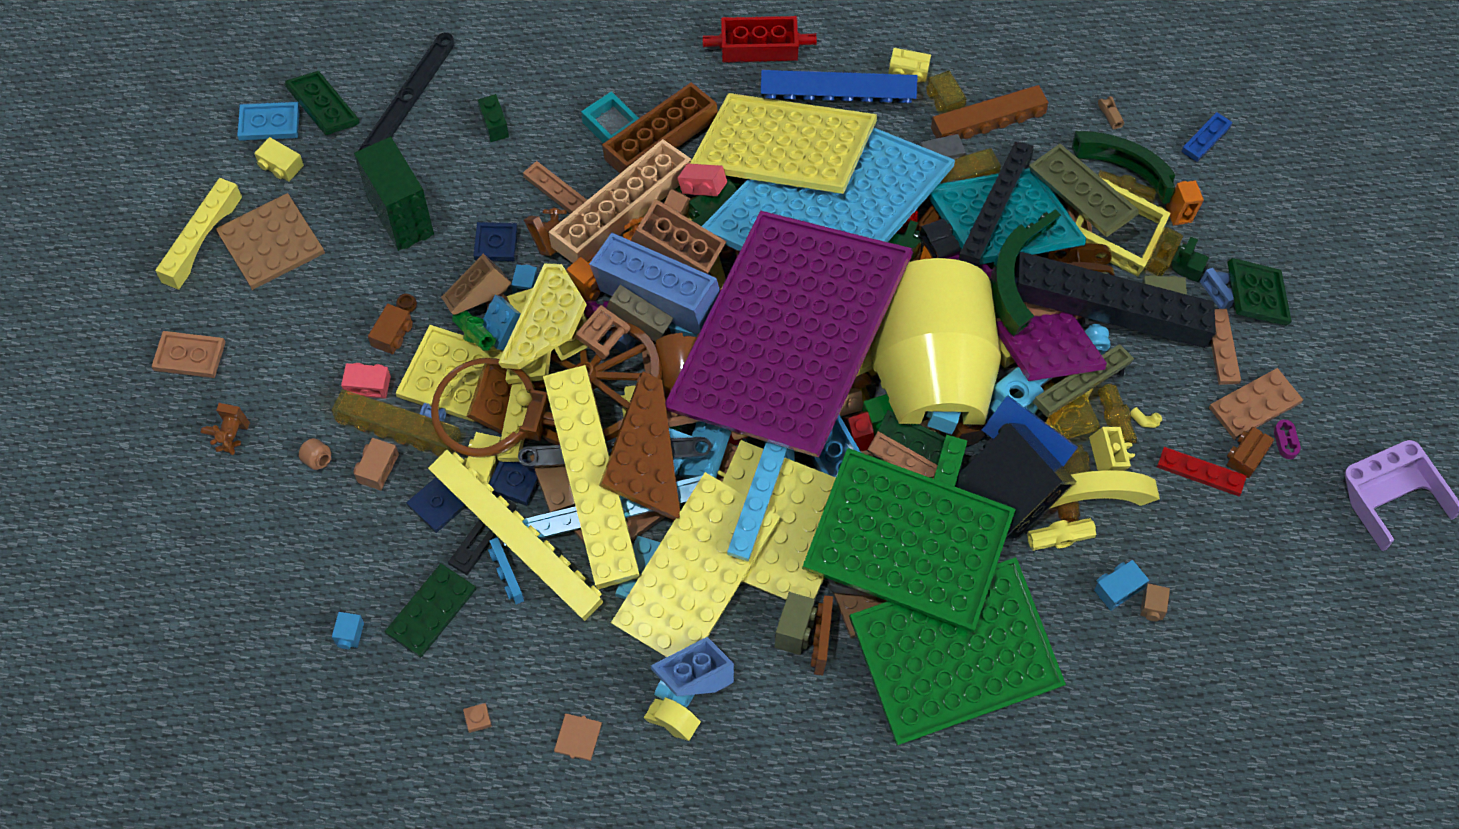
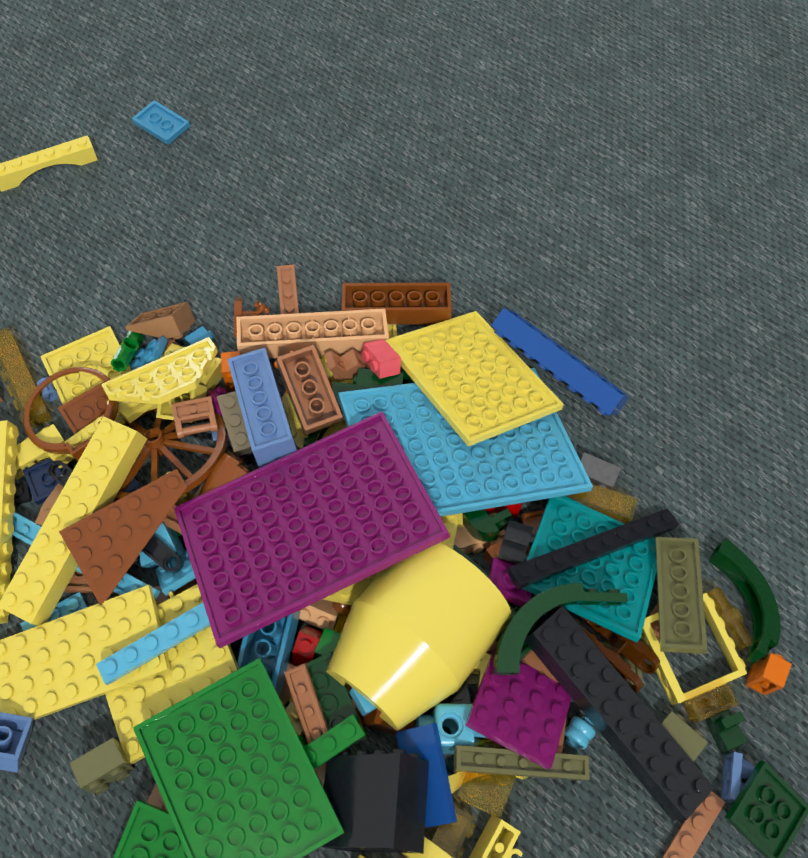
camera: 40 degrees right, 0 degrees up
(270, 241) = (81, 199): medium nougat plate -> none
(278, 159) = (139, 150): light yellow brick -> none
(322, 102) = (203, 132): dark green tile -> none
(366, 380) = (33, 333): coral brick -> none
(390, 329) = (84, 310): dark orange brick -> none
(394, 193) = (167, 217): dark green brick -> none
(406, 302) = (114, 300): reddish brown plate -> none
(415, 86) = (248, 167): black beam -> none
(493, 118) = (296, 215): dark green brick -> none
(496, 241) = (211, 301): dark blue plate -> none
(607, 117) = (372, 266): teal window -> none
(759, 39) = (536, 287): red brick -> none
(821, 635) = (110, 796): dark orange plate -> none
(910, 63) = (636, 386): light yellow brick -> none
(945, 92) = (644, 429): clear yellow brick -> none
(991, 114) = (667, 472): dark orange brick -> none
(1112, 113) = (775, 547): medium nougat bar -> none
(1117, 413) = (535, 816): clear yellow piece -> none
(1146, 421) = (558, 844): light yellow arm -> none

